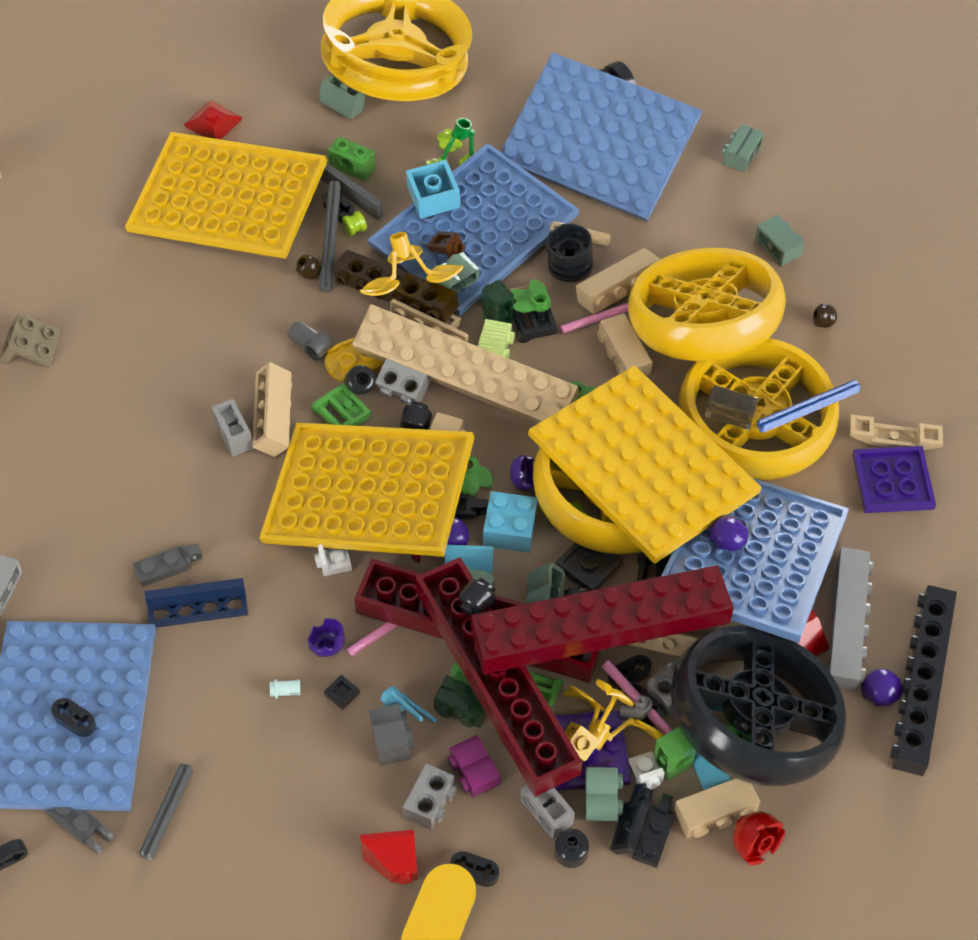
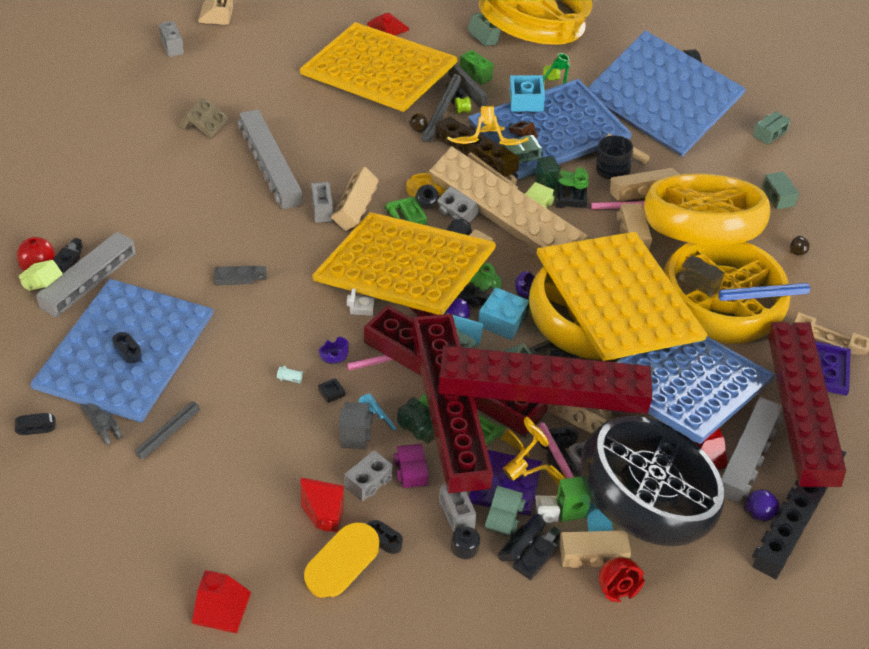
camera: 15 degrees right, 10 degrees down
(140, 379) = (270, 159): none -> light grey brick
(195, 595) = (251, 300): dark blue fence -> none
(314, 343) = (402, 167): dark grey piece -> none
(477, 596) = (453, 336): black head -> none
(582, 740) = (501, 467): yellow bracket -> none
(638, 711) = (558, 460): light grey arm -> none
(729, 533) = (670, 358): dark purple hair -> none
(896, 544) = (806, 406): none -> dark red piece

